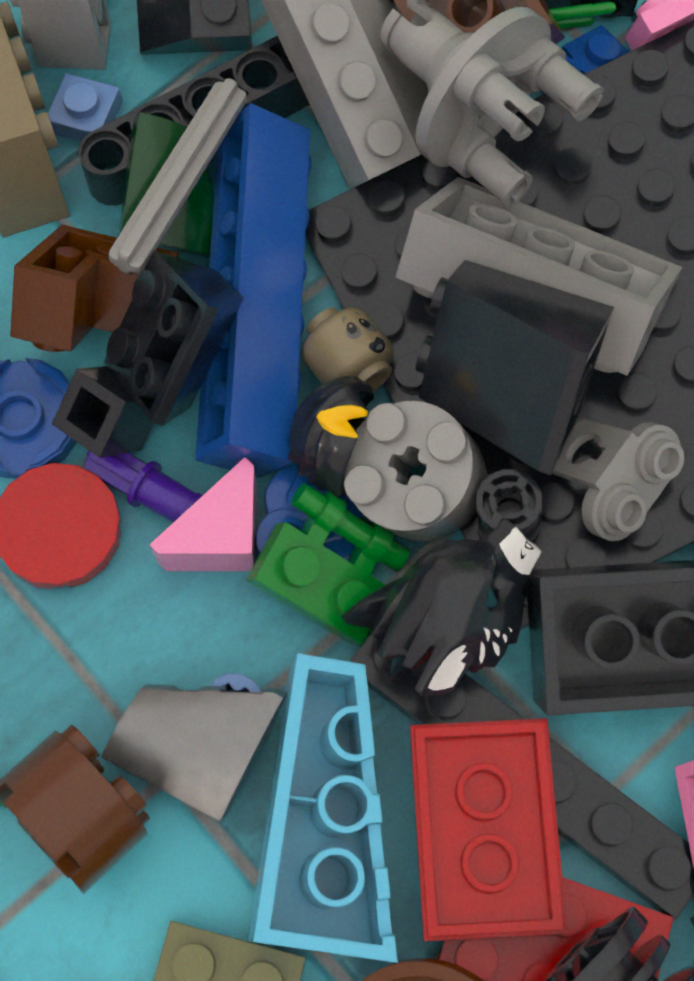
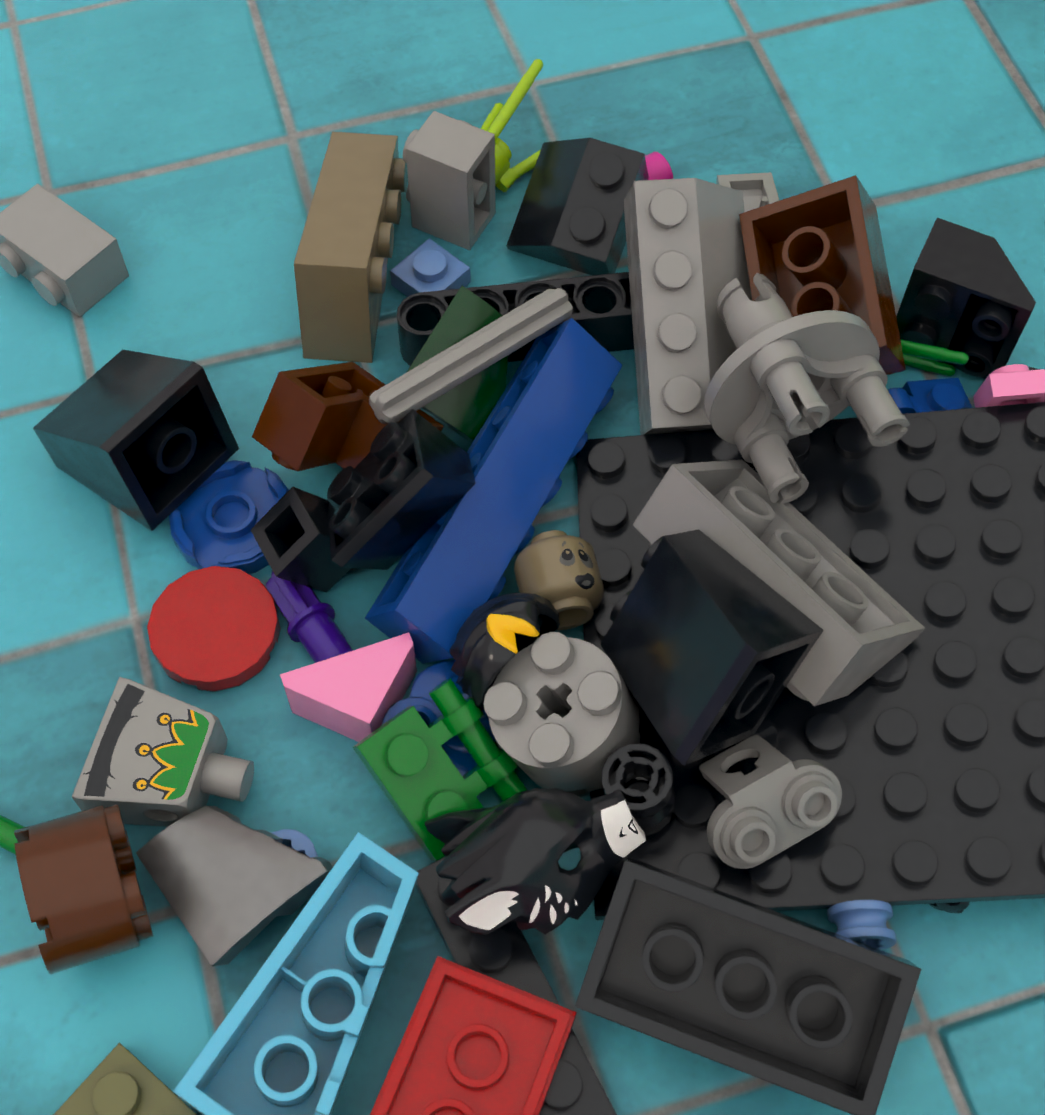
camera: 25 degrees right, 10 degrees down
(74, 666) = (158, 759): none -> light grey torso

